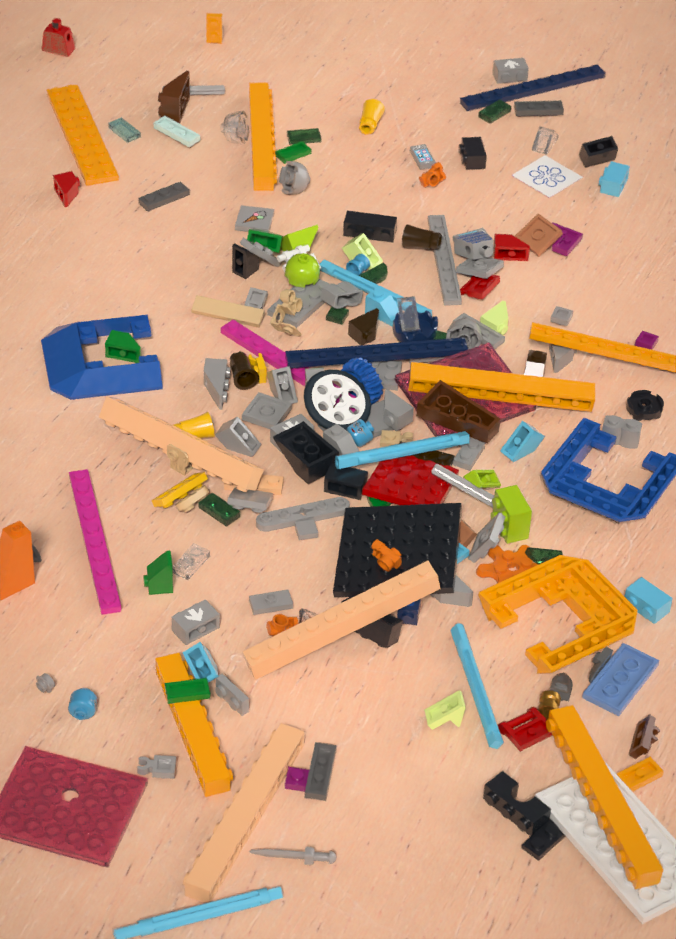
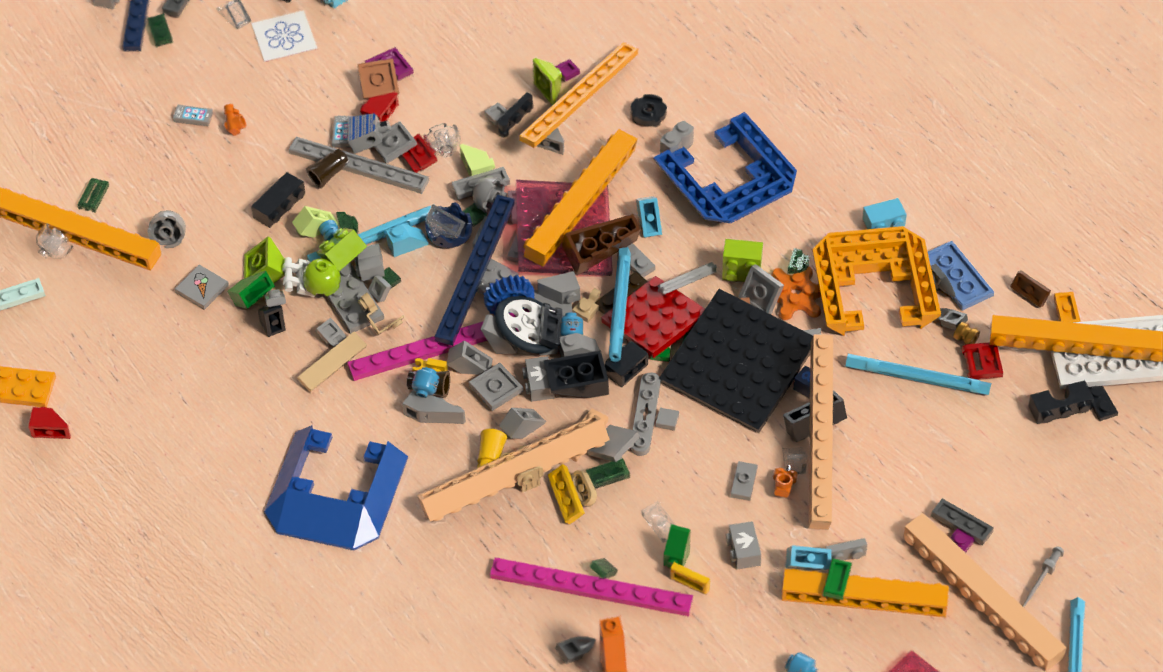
camera: 60 degrees left, 10 degrees up
(115, 539) = (603, 568): none -> clear green tile
(122, 347) = (335, 465): green slope -> none
(136, 597) = (690, 578): none -> yellow tile
(159, 767) = (902, 635): light grey plate -> none
(164, 196) = (113, 347): dark grey plate -> none
(229, 358) = (425, 382): none -> dark azure head
(293, 152) = (114, 212): green tile -> none
(320, 311) = (379, 288): none -> light grey plate
(335, 268) = (342, 247): none -> lime brick
(343, 412) = (550, 326): none -> black plate
(364, 327) = (426, 263): dark brown slope -> none
(371, 115) = (106, 127): yellow plant -> none
(386, 557) = (758, 367): orange plate -> none
(448, 709) = (943, 405): yellowish green slope -> none
(472, 153) = (219, 73): black brick -> none
(483, 478) = (682, 263): lime slope -> none
(501, 288) = (442, 139): none -> clear cylinder
(536, 363) = (560, 165): slope -> none
(570, 323) = (515, 114): none -> black plate
(623, 326) = (547, 79): none -> lime slope

